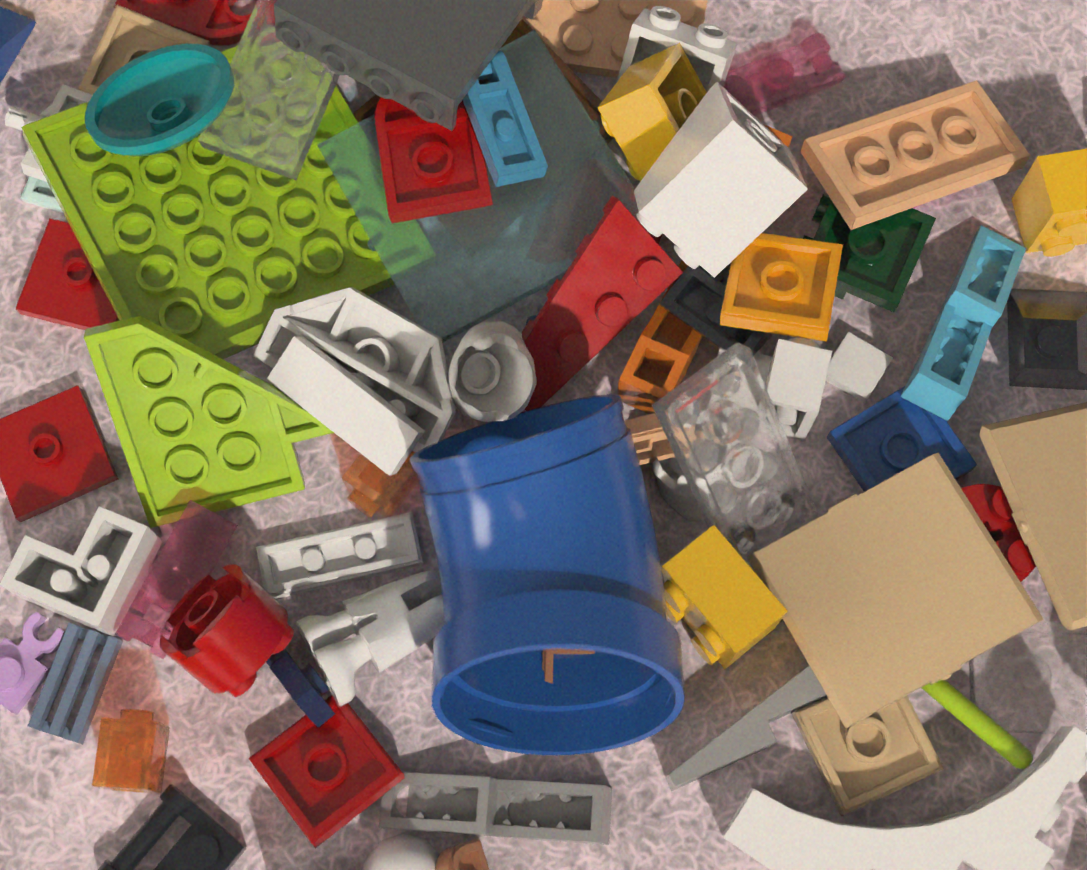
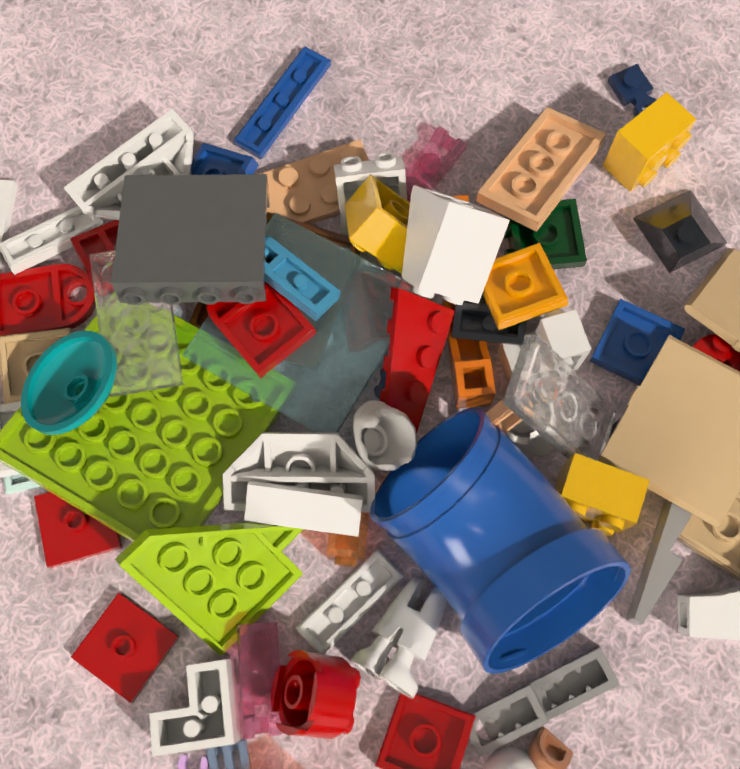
camera: 30 degrees left, 0 degrees up
(303, 686) = (384, 700): dark blue plate -> none
(857, 367) = (587, 308): white tile -> none
(964, 324) = (628, 261): medium azure slope -> none

